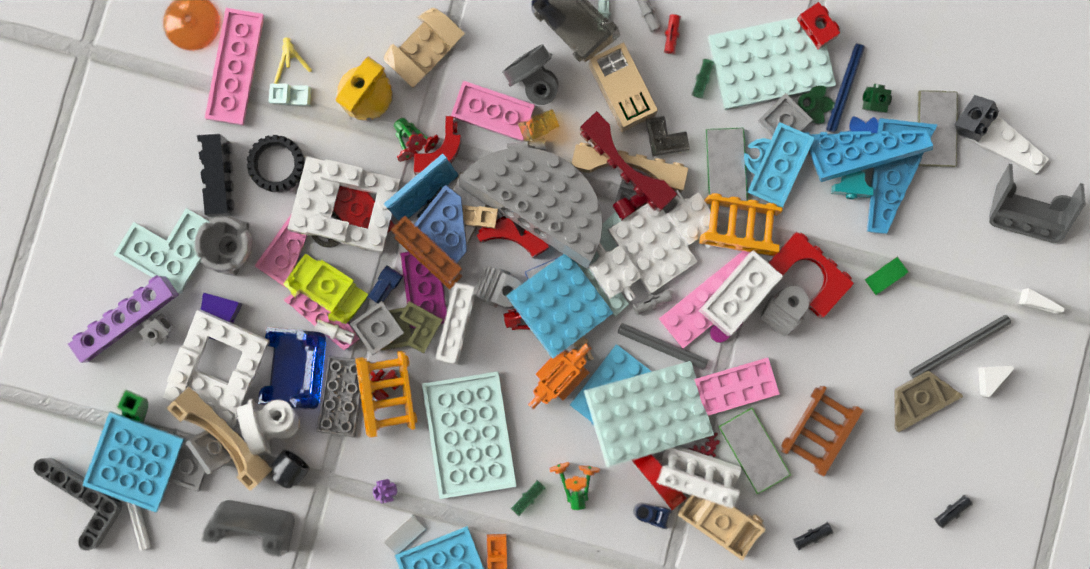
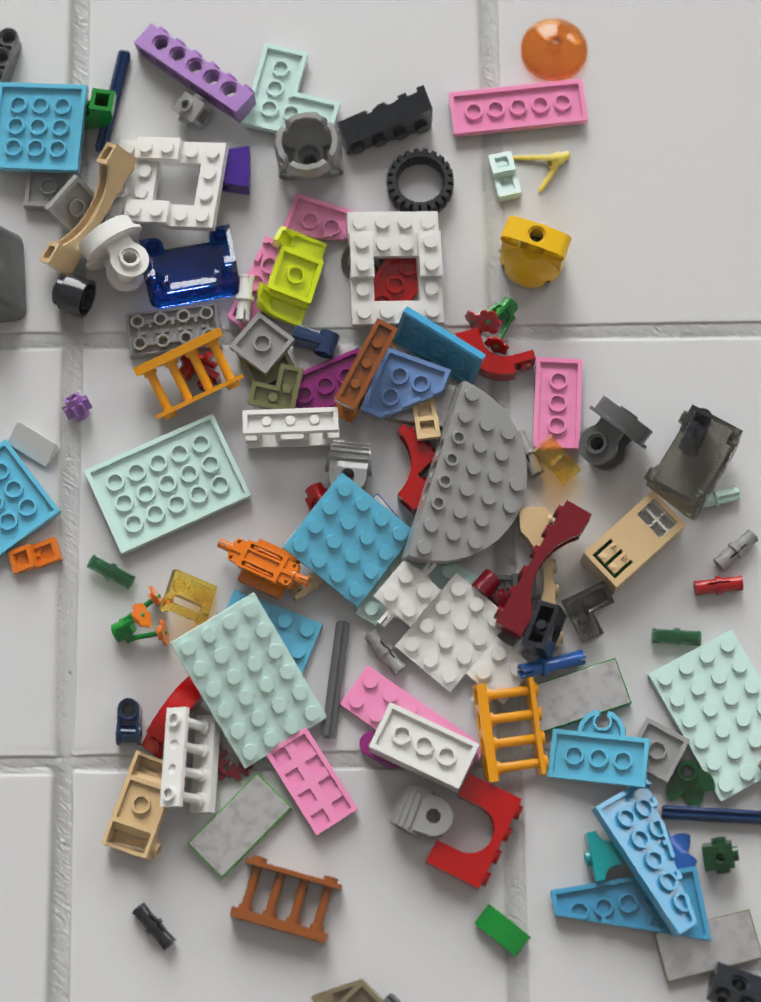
camera: 75 degrees right, 10 degrees down
(118, 390) = (117, 85): none -> dark blue axle
(424, 46) = (606, 304): tan piece -> none
(562, 439) = (191, 590): none -> clear yellow plate
(676, 175) = (544, 629): none -> black brick
(700, 184) = (544, 666): none -> blue pin

